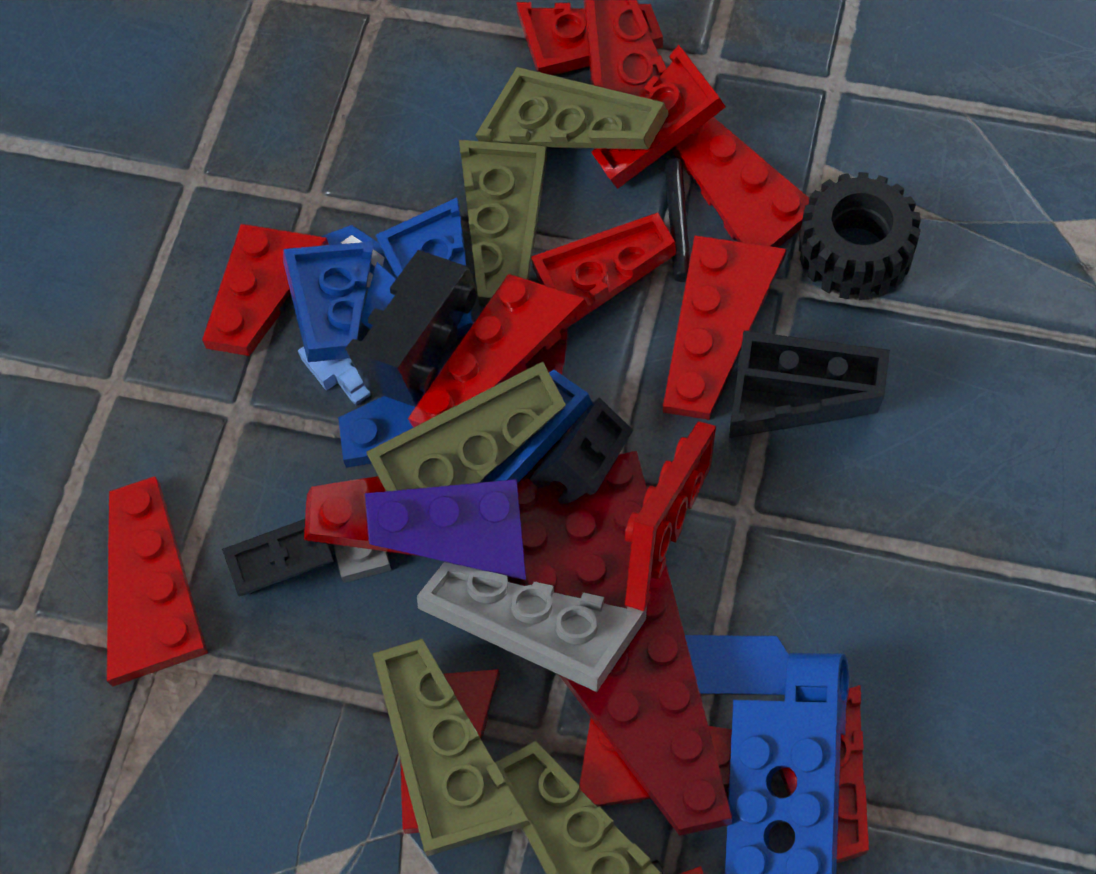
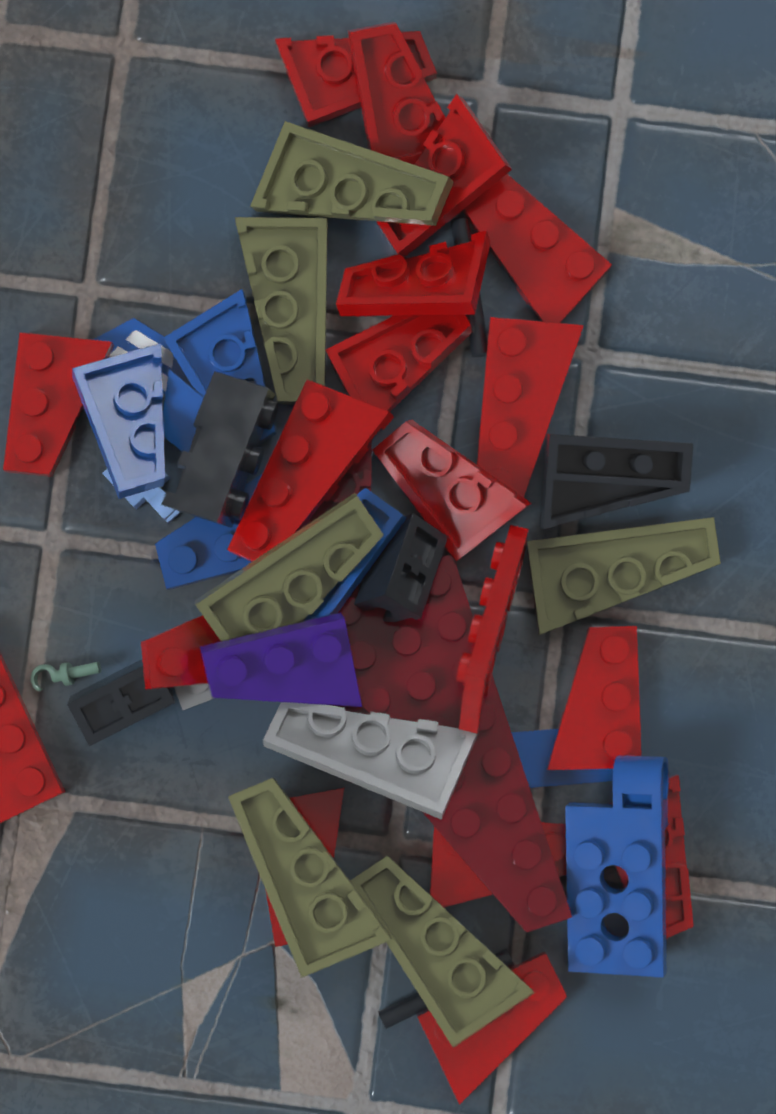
camera: 10 degrees left, 20 degrees up
(228, 534) = (66, 673): none -> sand green hand
(639, 387) = (448, 487): none -> red wing
(640, 204) = (428, 284): none -> red wing
(780, 610) = (602, 703): none -> red wing
(793, 478) = (605, 568): none -> olive wing
(862, 205) = (667, 266): black tyre -> none

